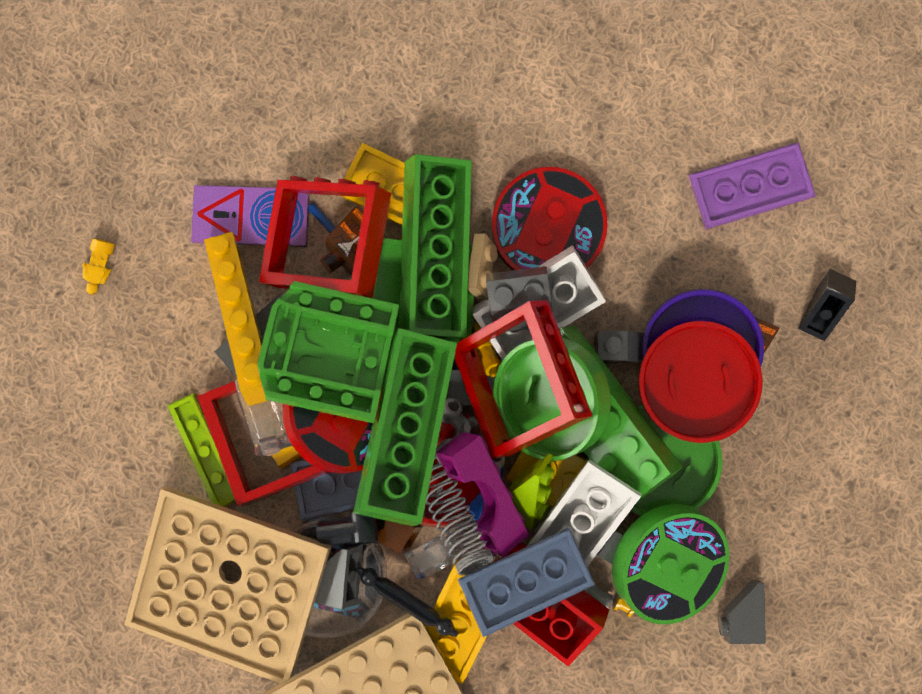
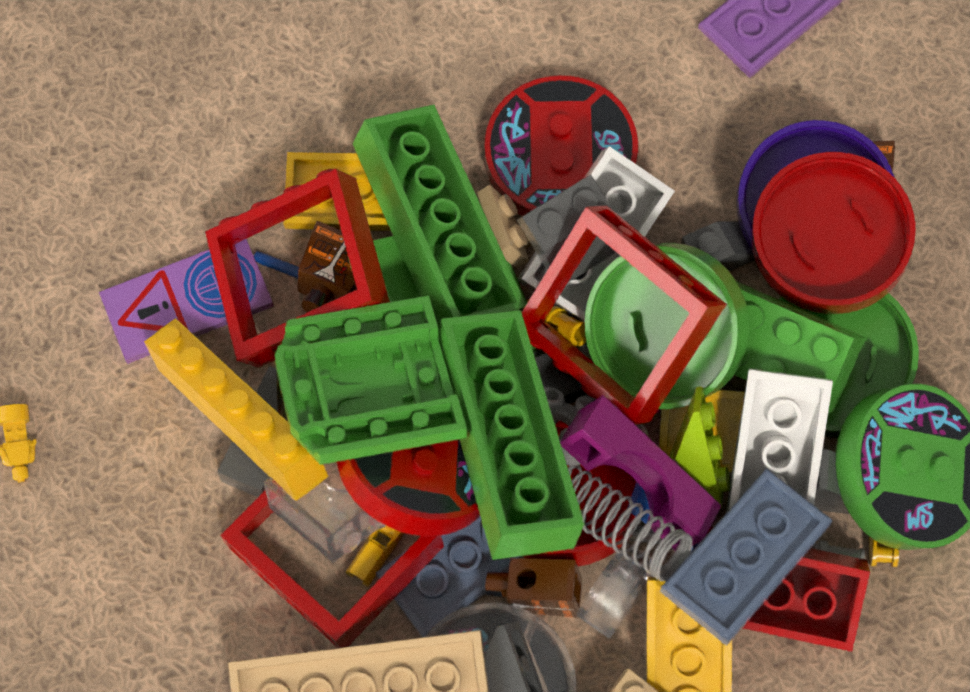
camera: 25 degrees left, 15 degrees down
(202, 449) = (253, 604): lime tile -> none
(349, 529) = (503, 593): black piece -> none
(407, 601) = (609, 660): black wheel -> none
(828, 304) = (938, 95): black slope -> none

